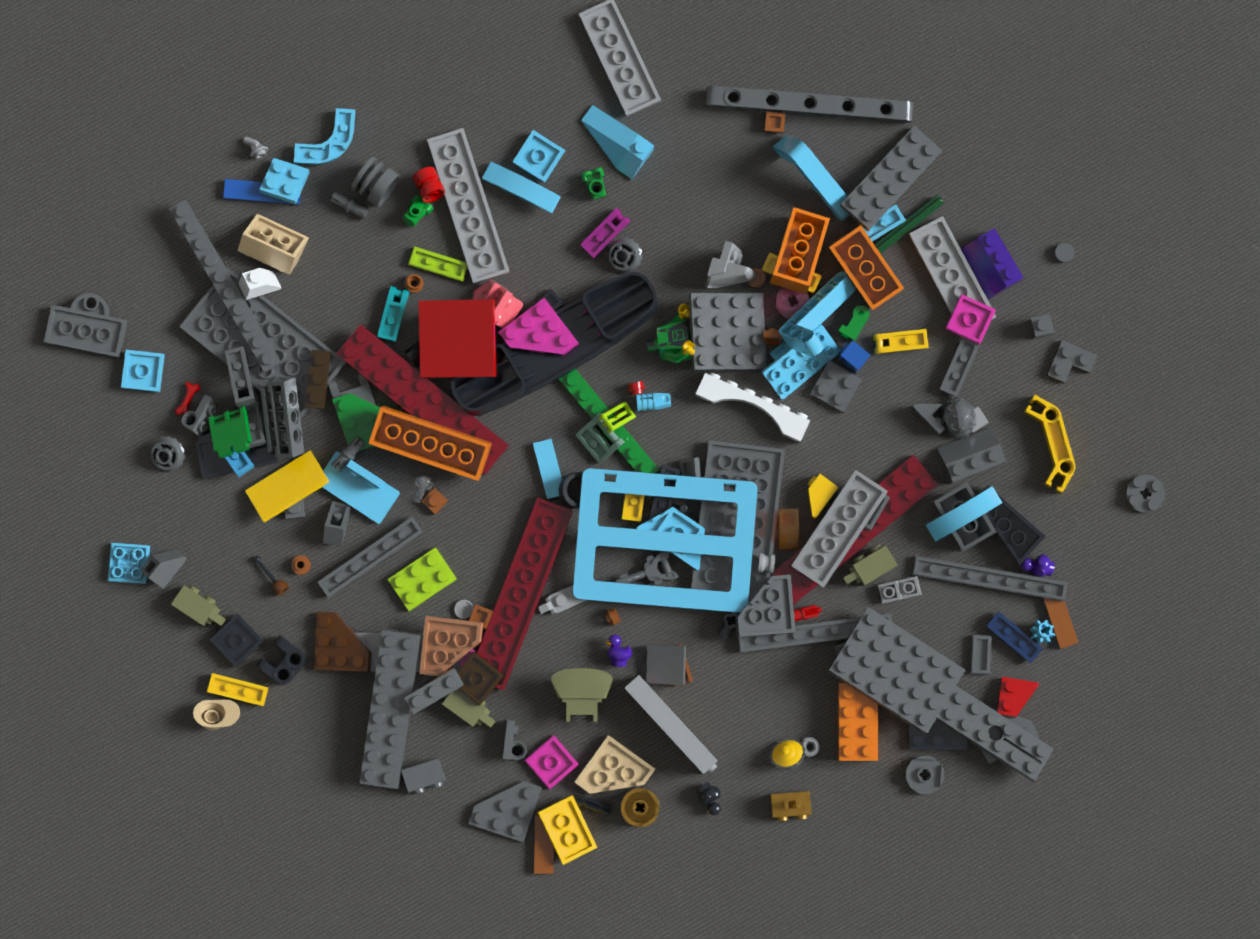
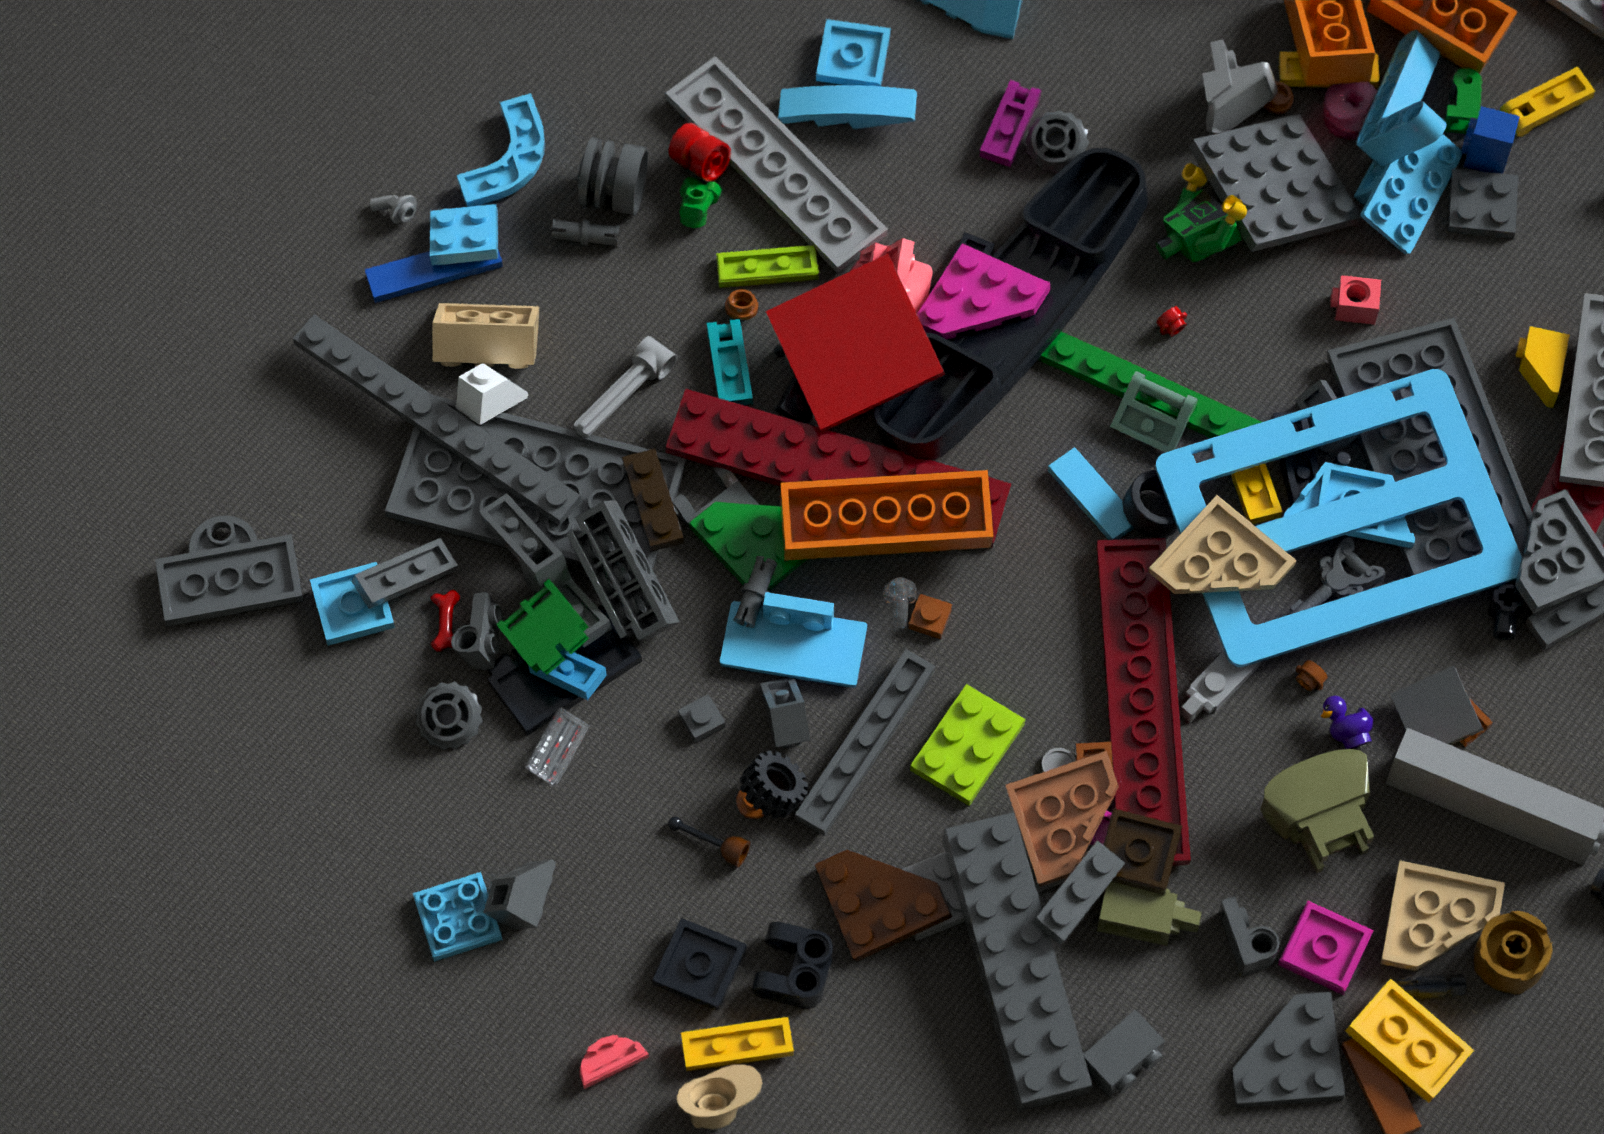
camera: 25 degrees left, 20 degrees down
(172, 669) = (609, 1057): none -> coral plate
(174, 367) = (404, 573): none -> dark grey plate
(197, 607) = (608, 935): olive hinge -> none
(214, 493) = (557, 746): none -> clear tile
(287, 486) = (675, 685): yellow tile -> none
(321, 561) = (787, 786): none -> black tyre
(351, 296) = (649, 362): none -> light grey axle
(592, 538) = (1221, 555): none -> tan plate
(594, 179) = (960, 58): green plate -> none
(607, 422) = (1171, 381): lime tile -> none
(653, 401) = (1208, 331): medium azure hinge -> none
(743, 424) = (1358, 312): none -> coral brick
(766, 563) = (1518, 488): light grey wheel -> none
(772, 337) = (1349, 166): dark orange plate -> none
(788, 528) = (1523, 427): clear orange slope -> none
(789, 423) = (1437, 278): white arch -> none

